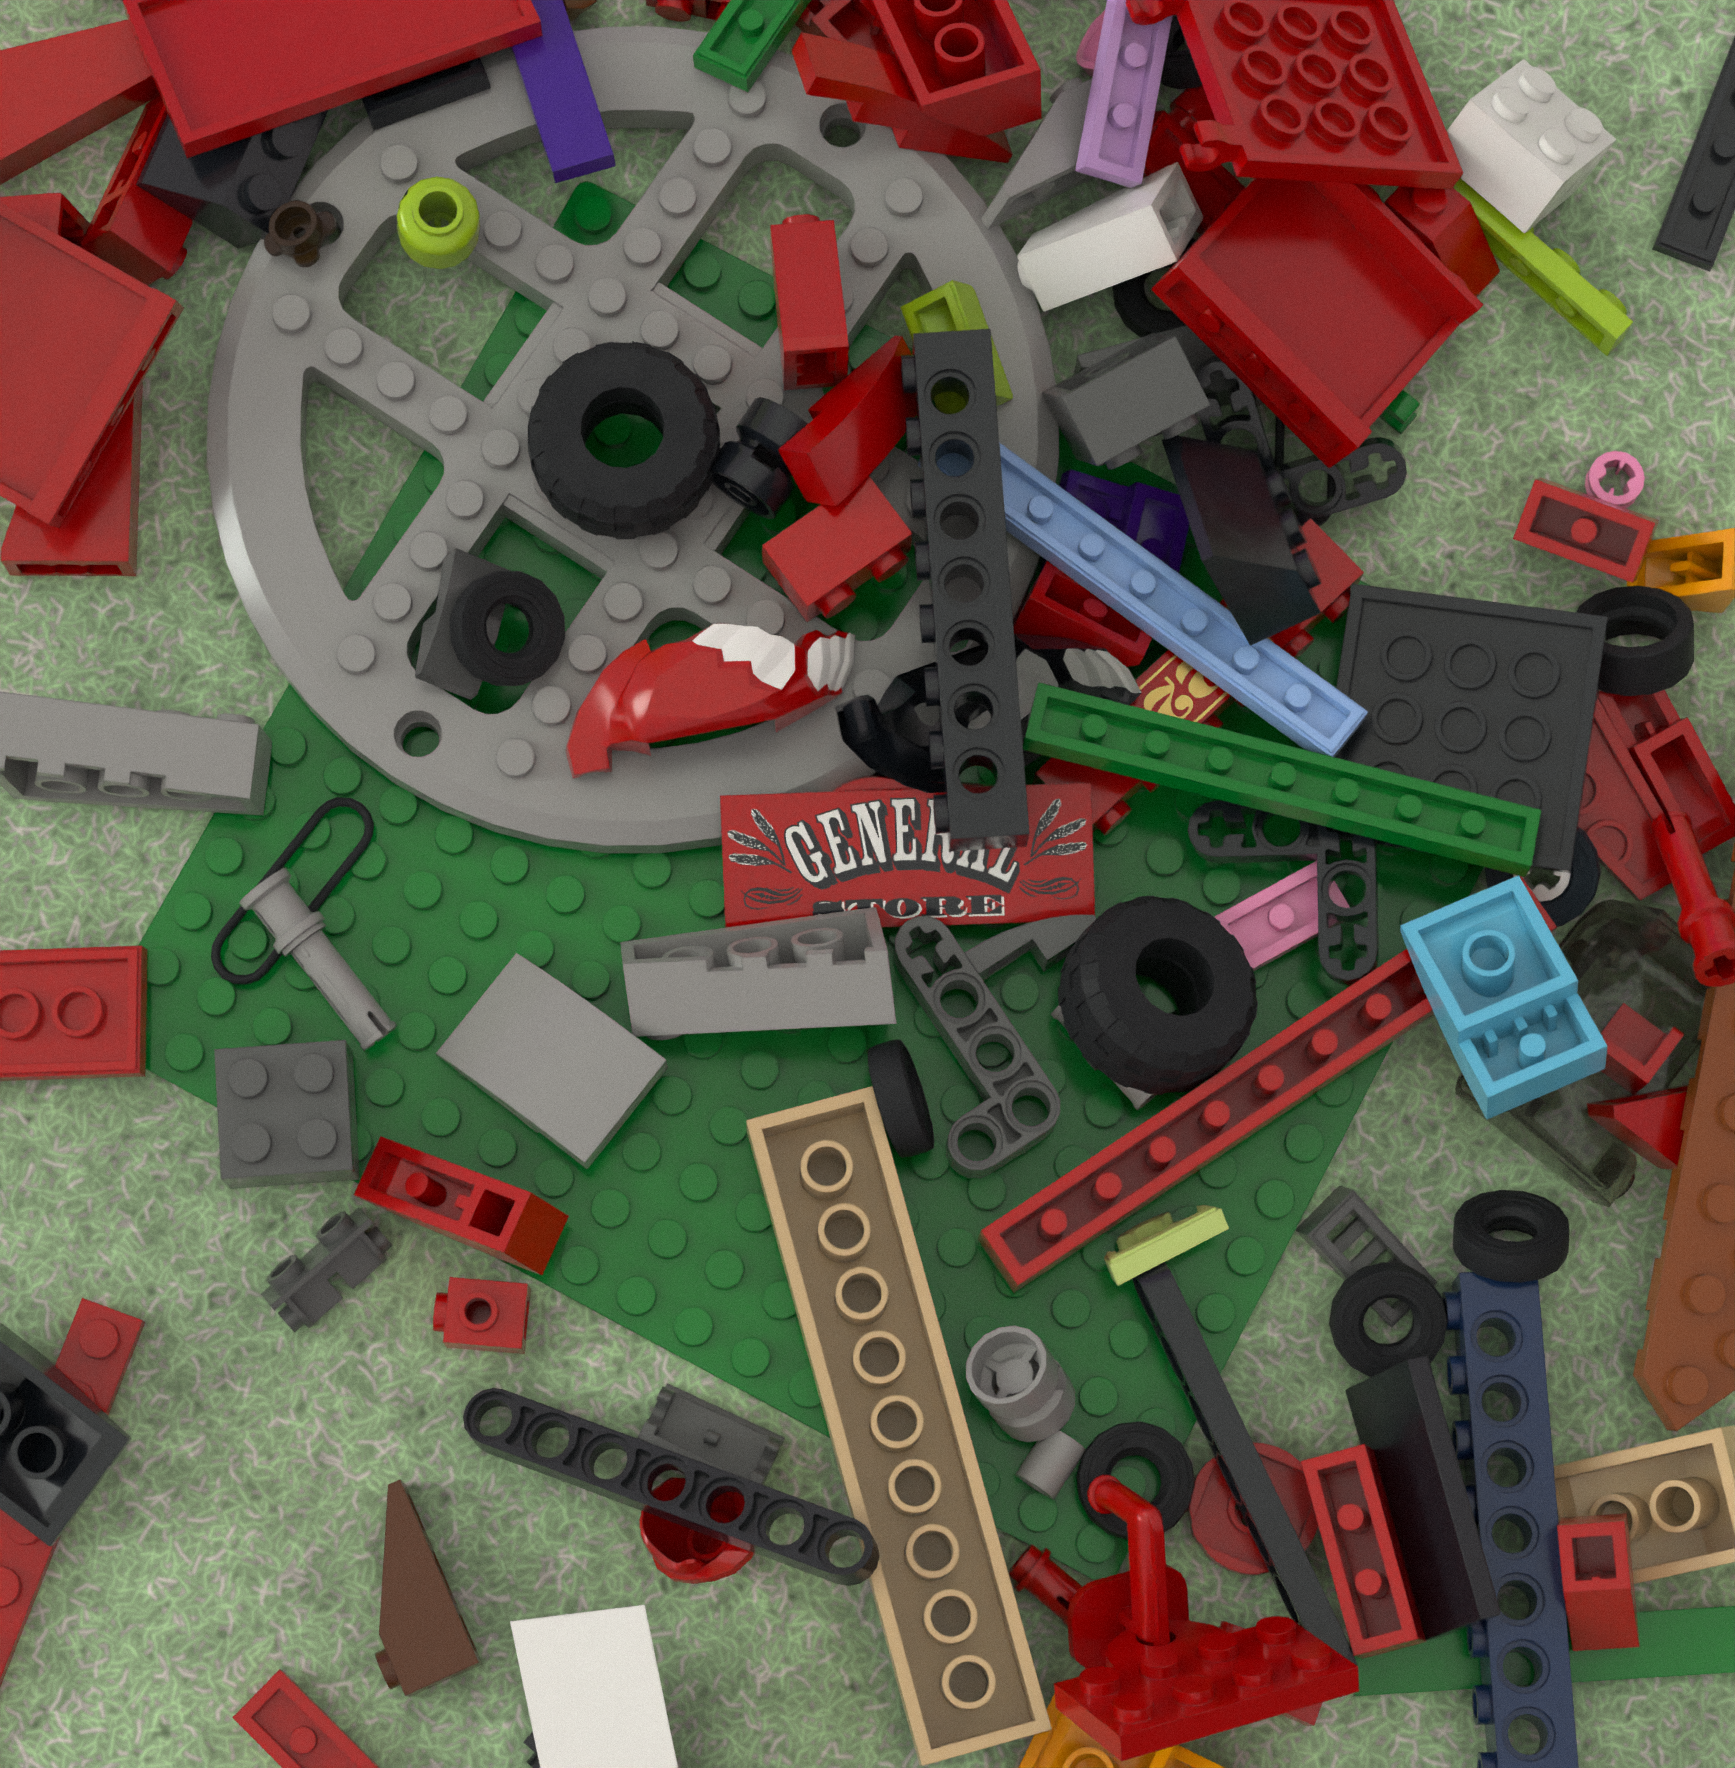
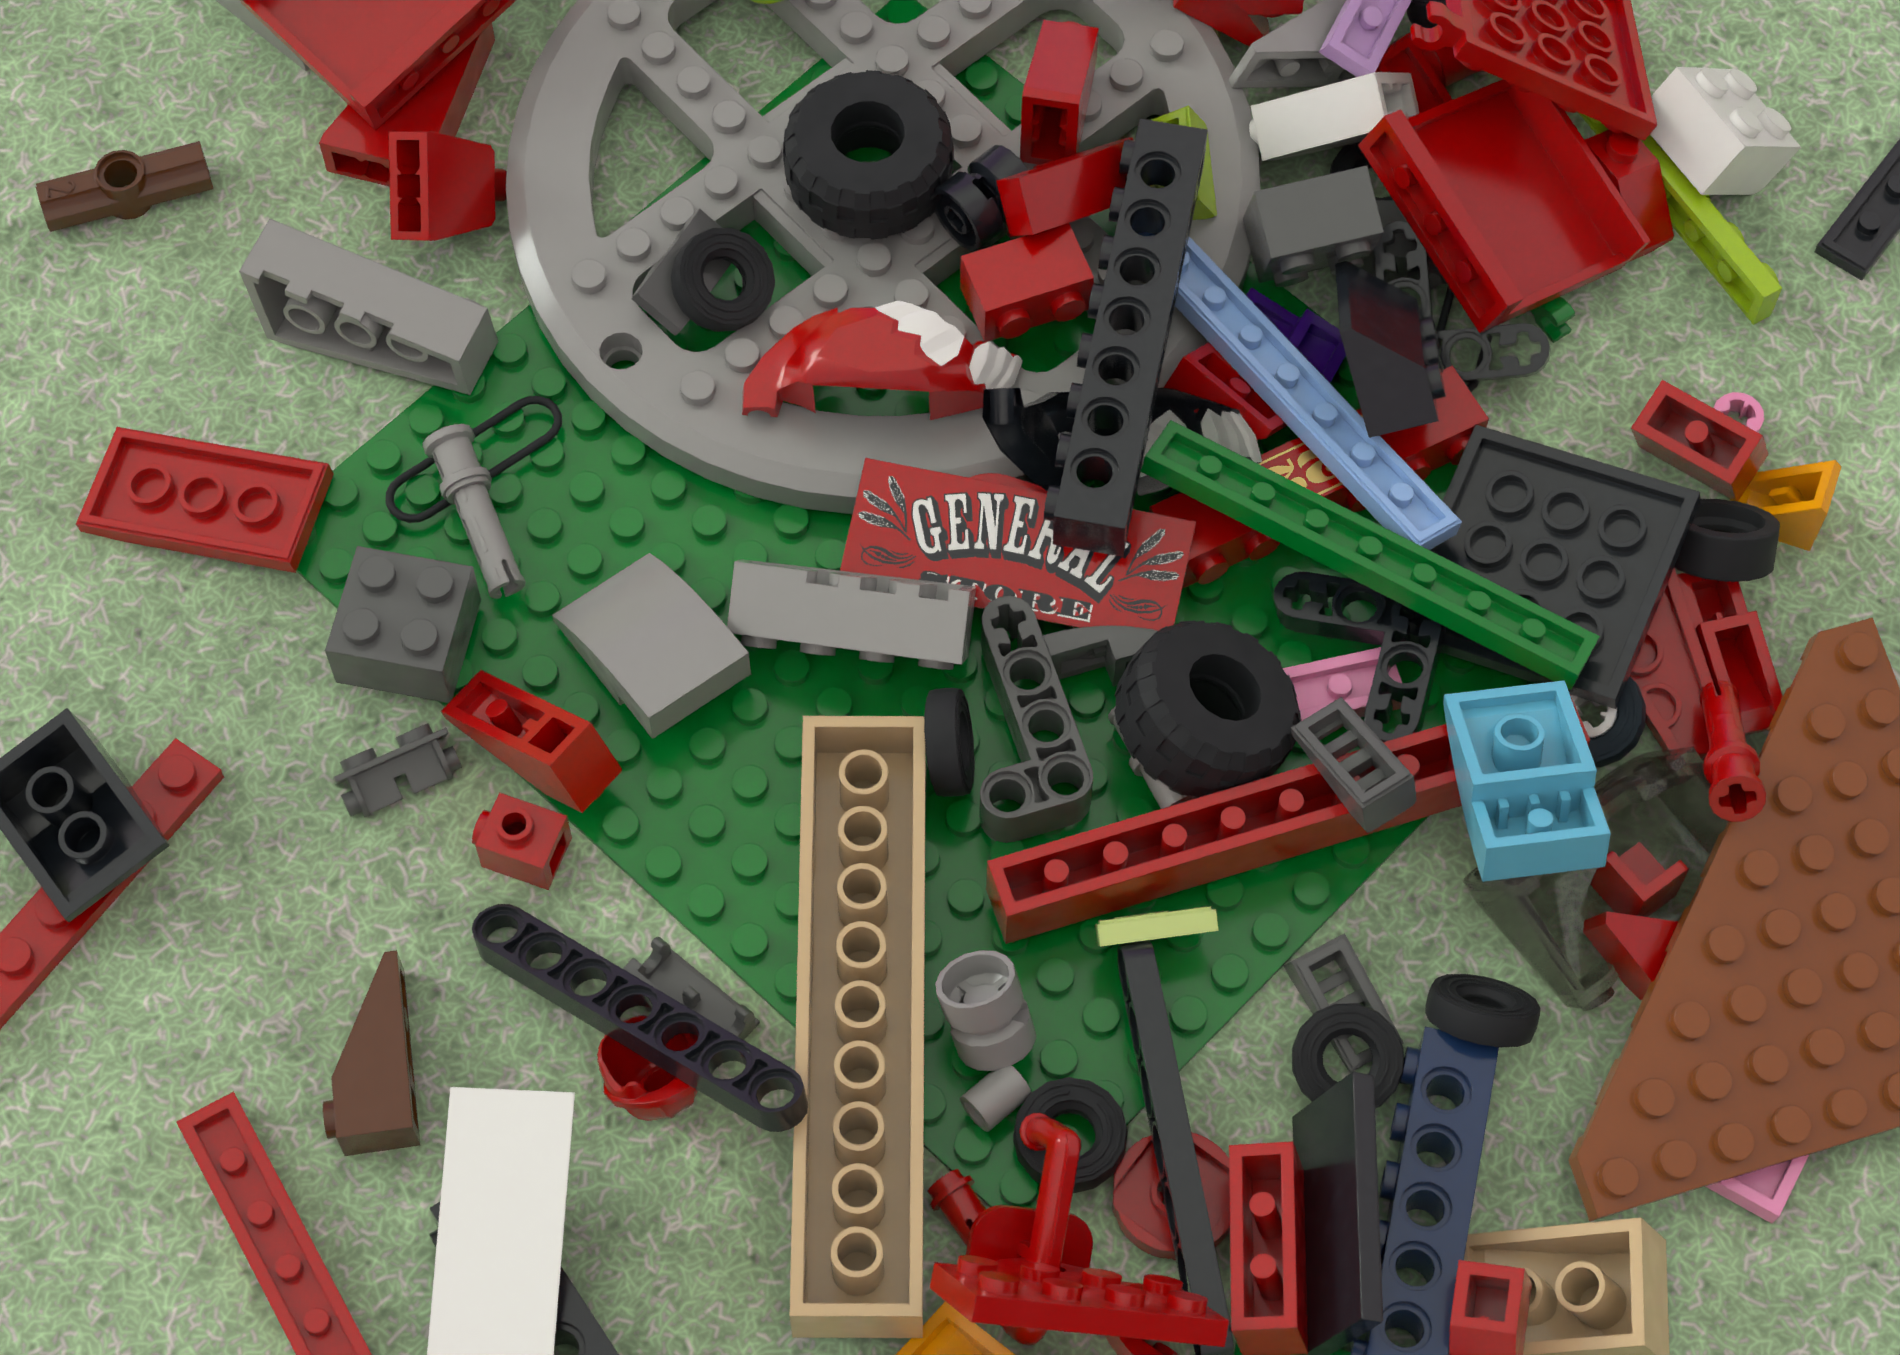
camera: 20 degrees right, 15 degrees down
(156, 583) = (441, 185): none -> red torso
(1367, 1061) = (1375, 796): none -> dark grey slope

